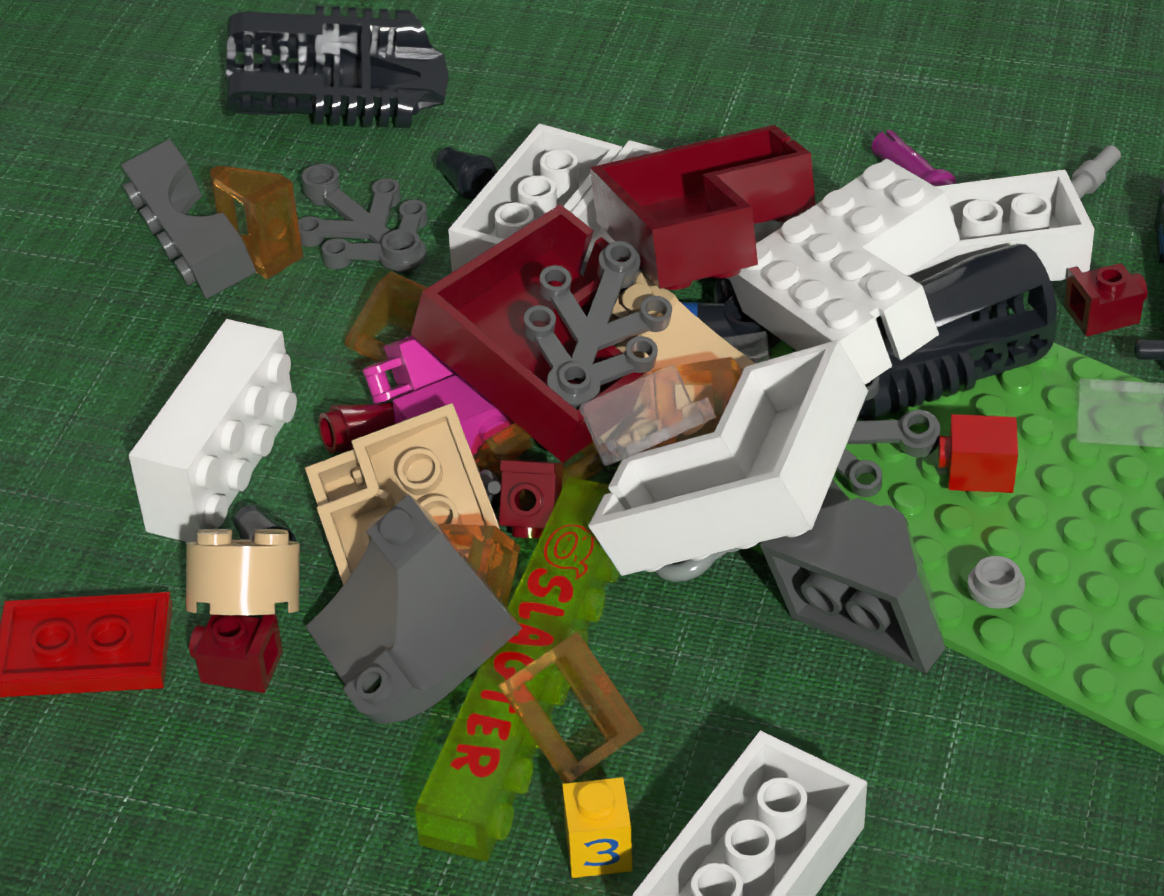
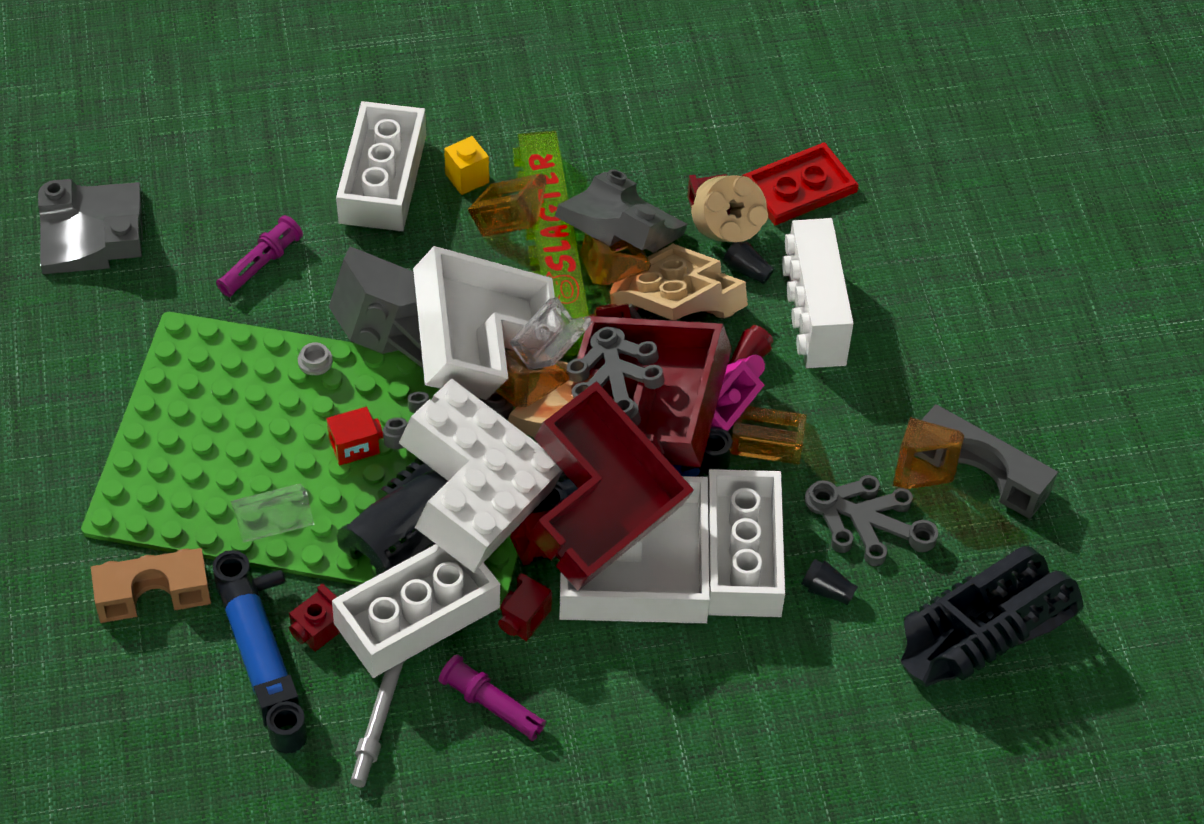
camera: 150 degrees right, 10 degrees up
(1003, 809) = (269, 245): none -> magenta pin

